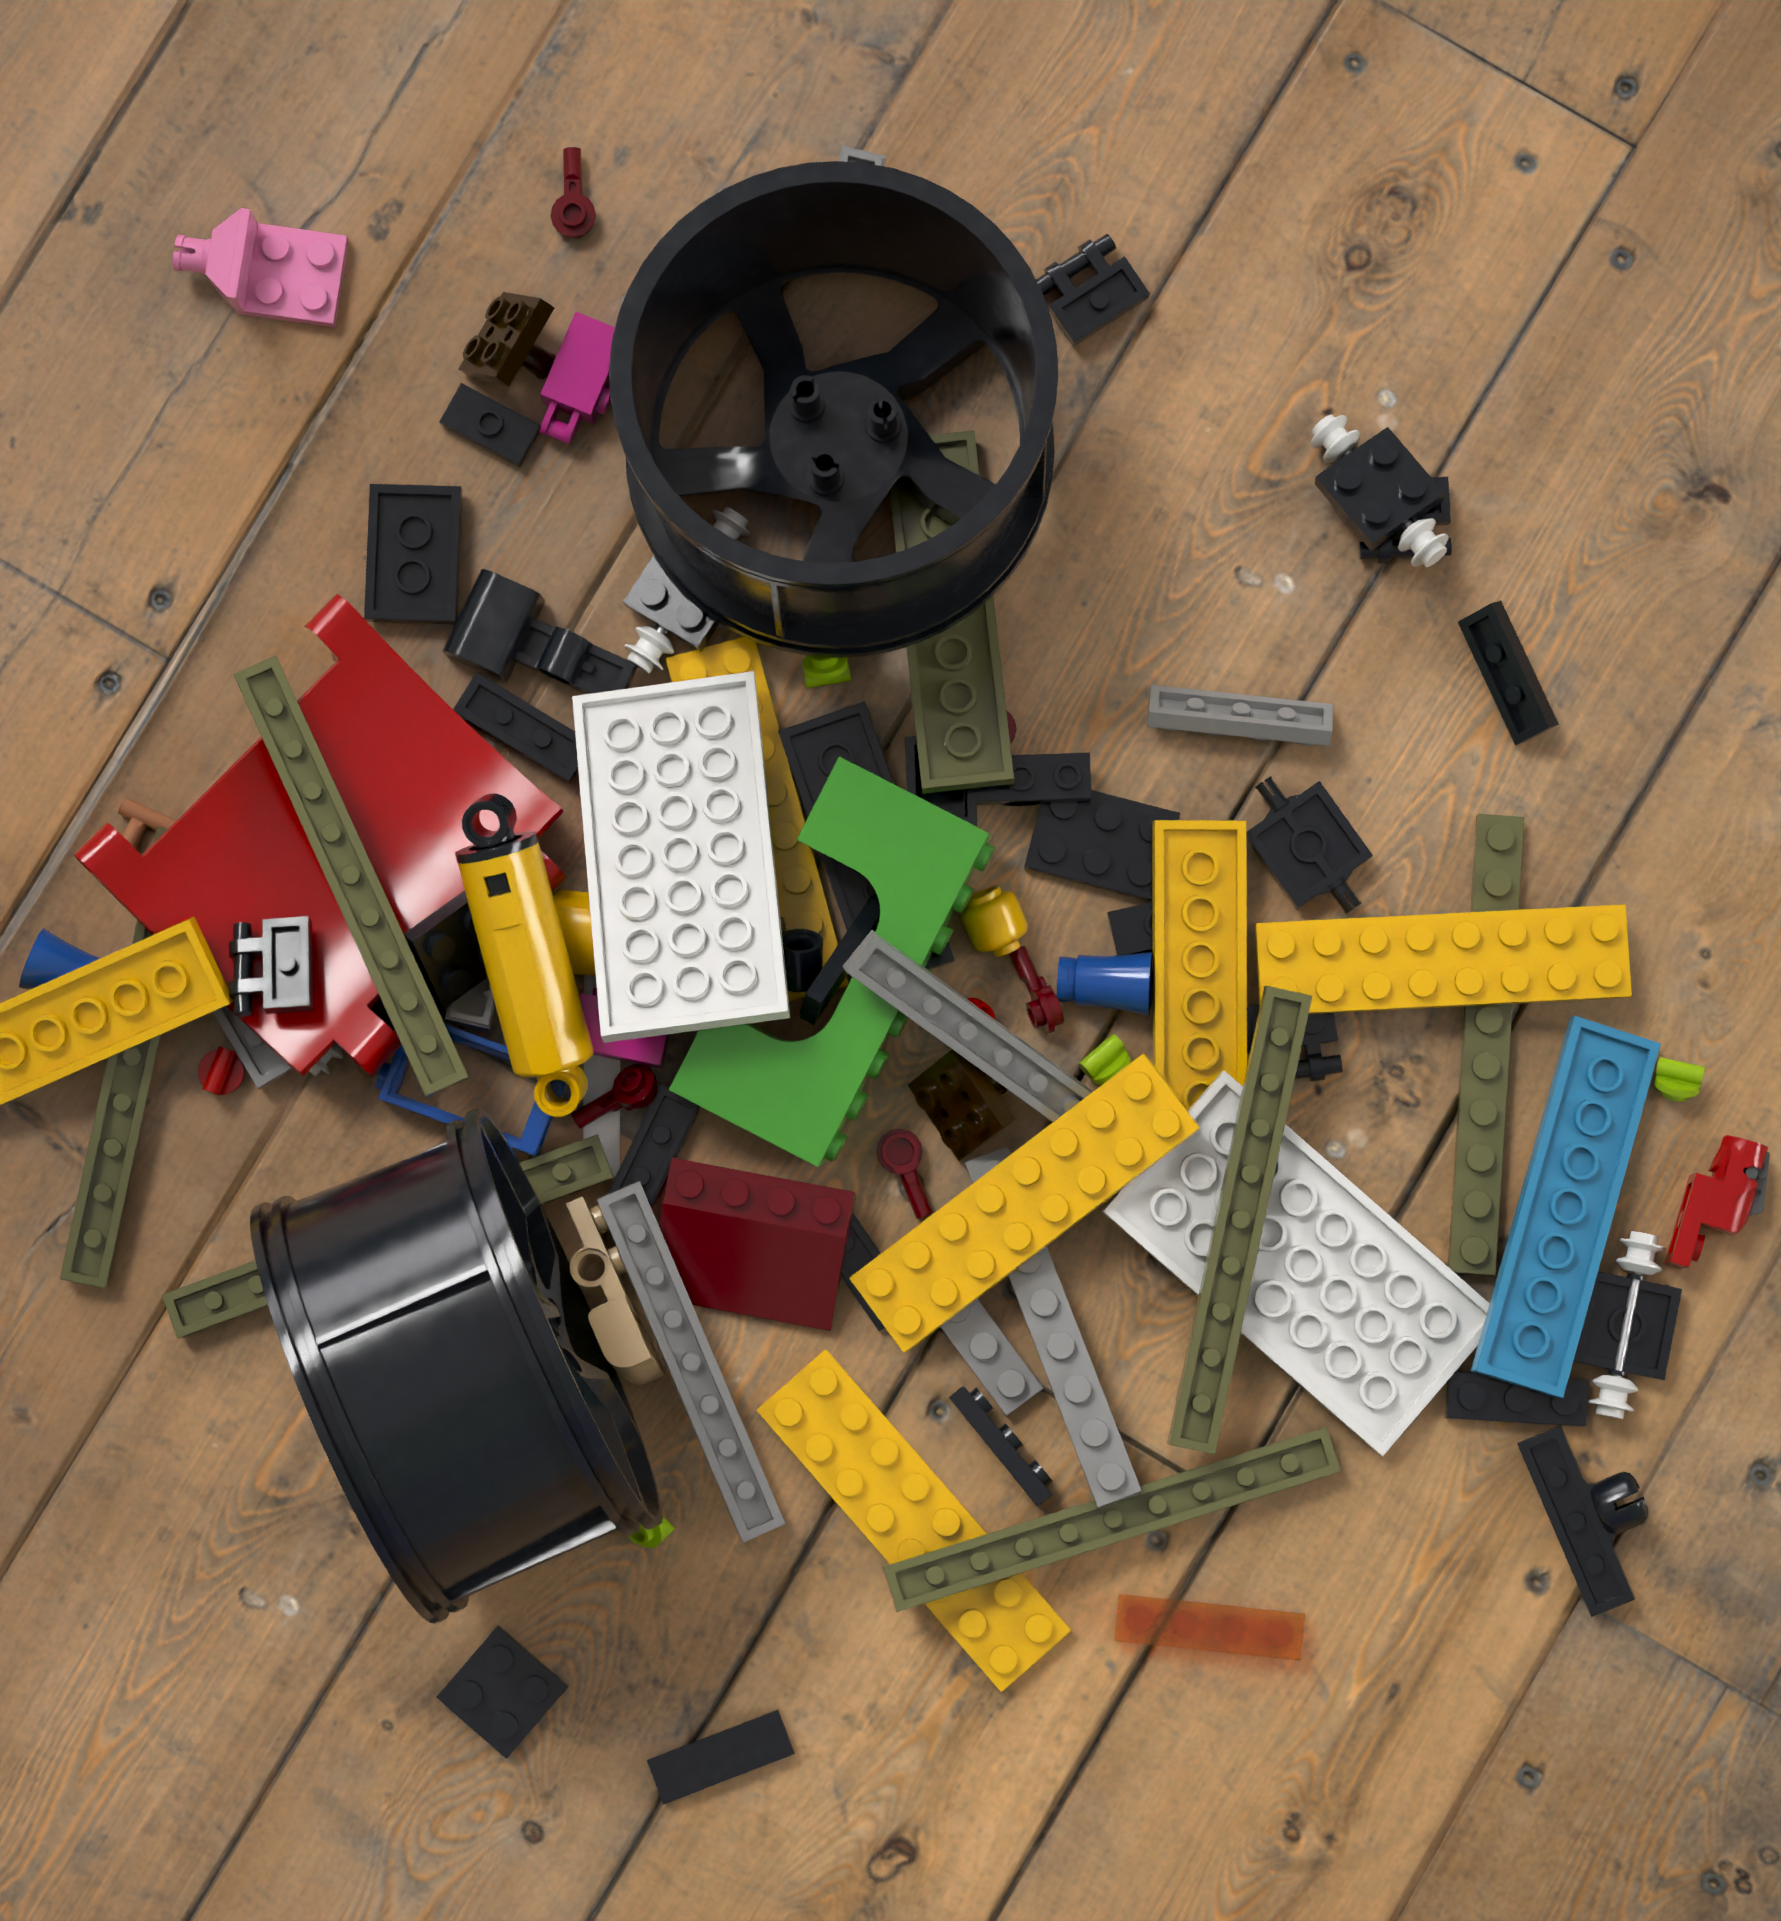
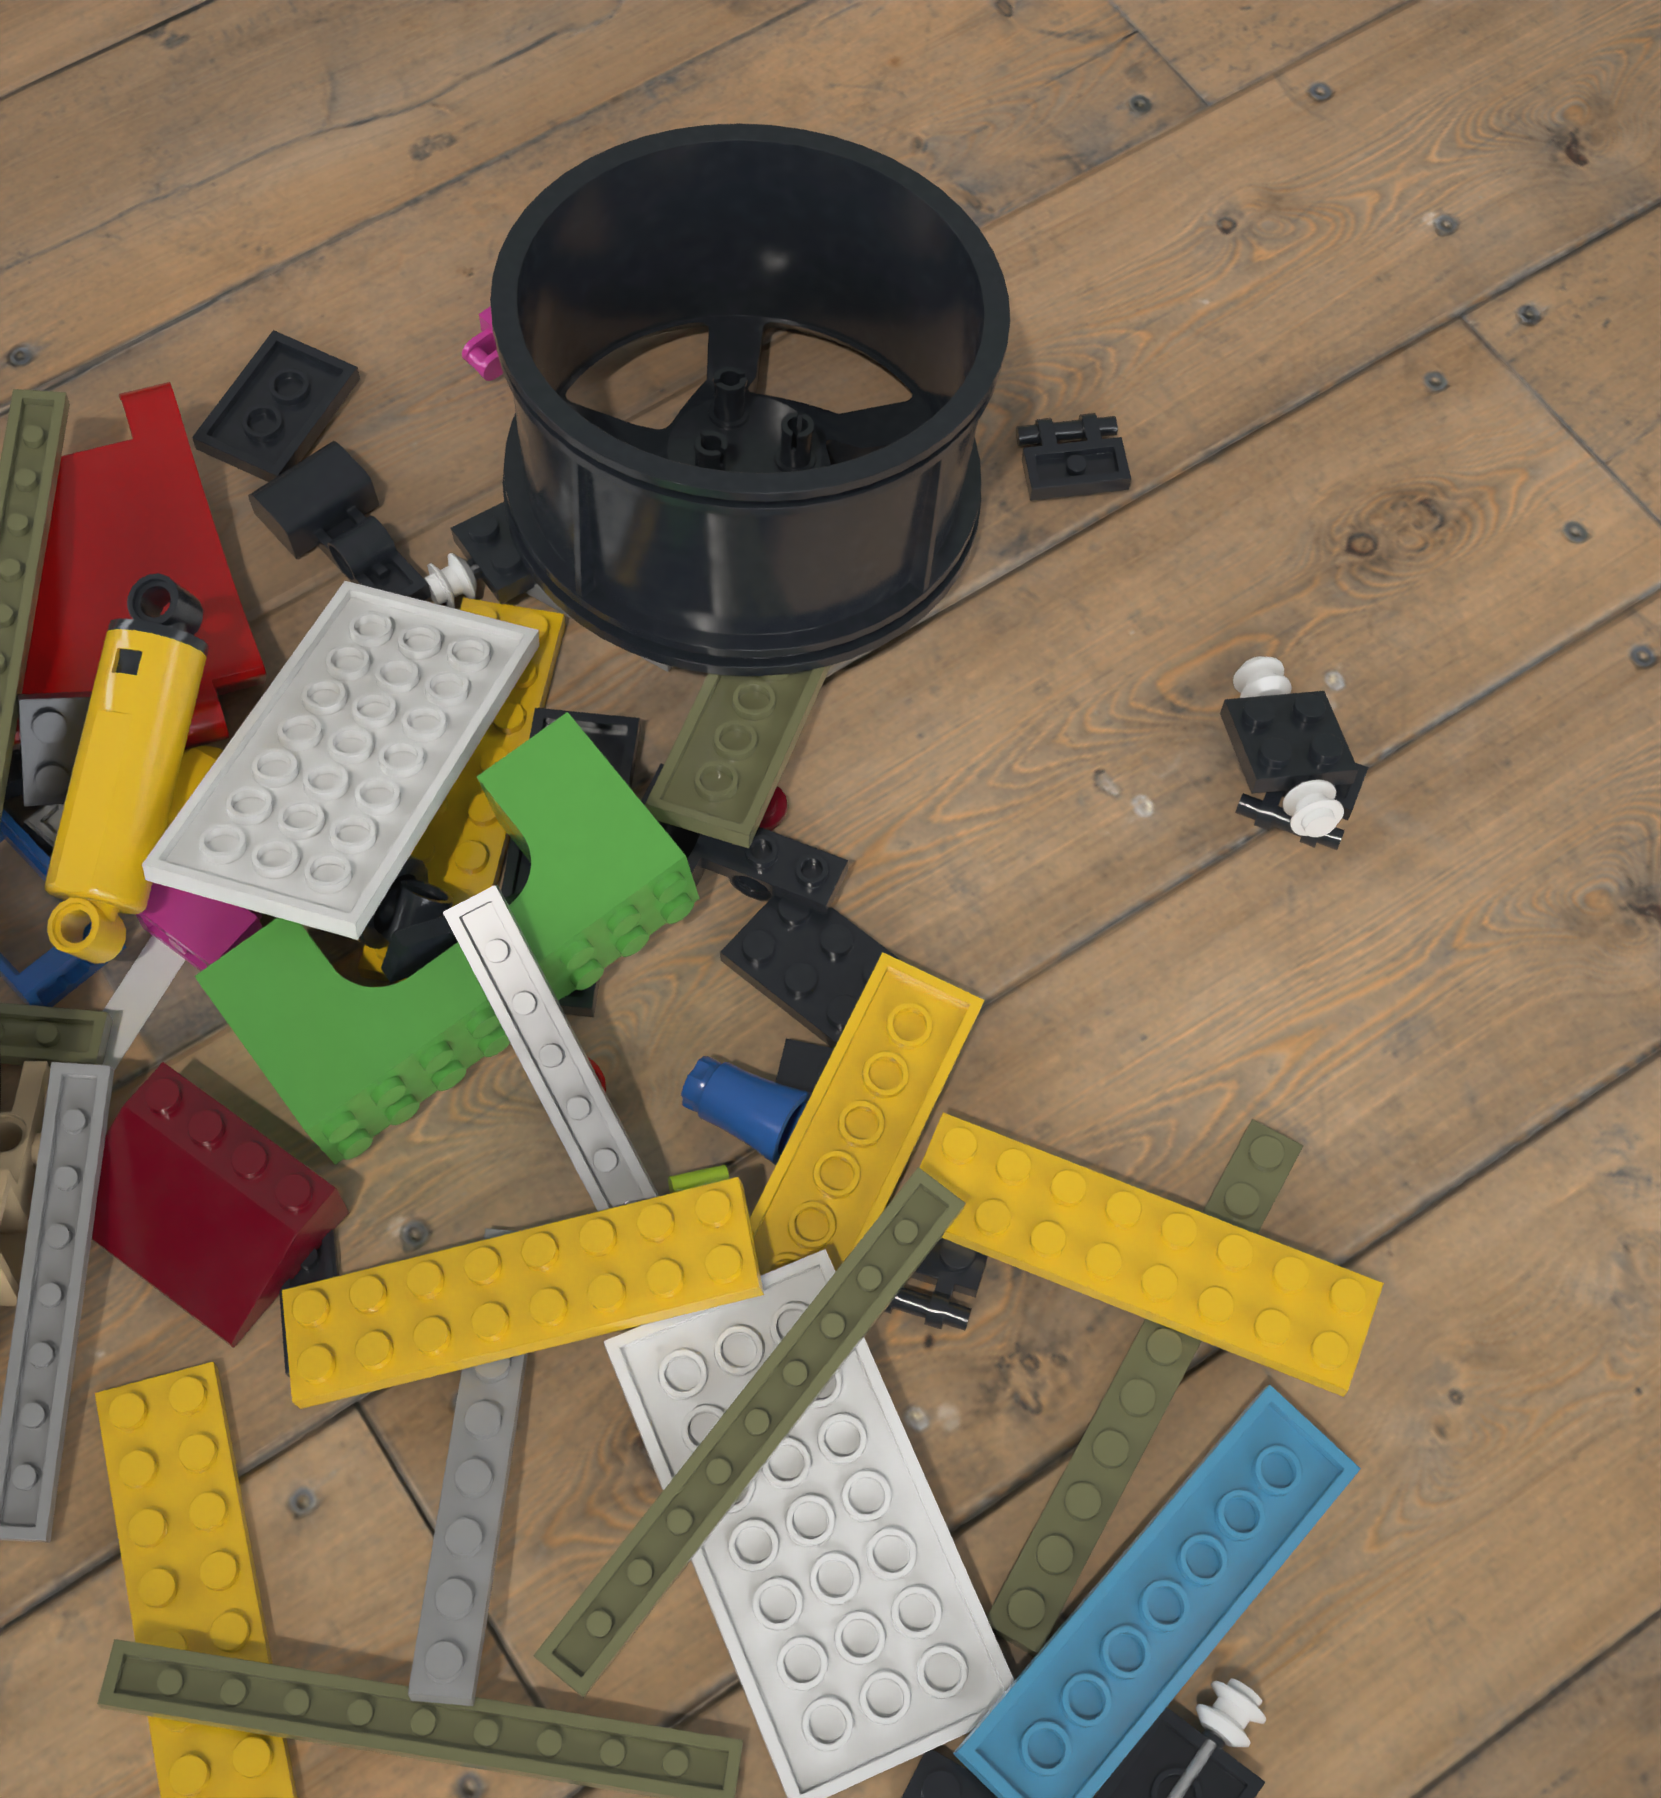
camera: 20 degrees right, 20 degrees down
(270, 268) = (295, 132): bright pink plate -> none
(490, 425) = (420, 337): black plate -> none
(509, 341) = (468, 264): dark brown plate -> none
(519, 726) = (275, 587): black plate -> none
(632, 1089) = (171, 989): dark red plate -> none
(656, 1142) = (185, 1044): black tile -> none
(825, 671) = (619, 676): lime plate -> none
(900, 1154) = (419, 1188): dark red plate -> none
(961, 1103) = (514, 1156): dark brown plate -> none
(991, 1357) = (394, 1464): light grey plate -> none
(994, 921) = (657, 989): yellow head -> none
(1002, 1443) = (347, 1571): black plate -> none
(1044, 1006) = (663, 1103): dark red plate -> none
(1240, 715) = (1018, 896): light grey plate -> none
(1308, 845) = (1043, 1067): black plate -> none
(1508, 673) = (1350, 988): black plate -> none
(1678, 1079) = (1365, 1521): lime plate -> none
(1720, 1200) = (1361, 1693): red plate -> none

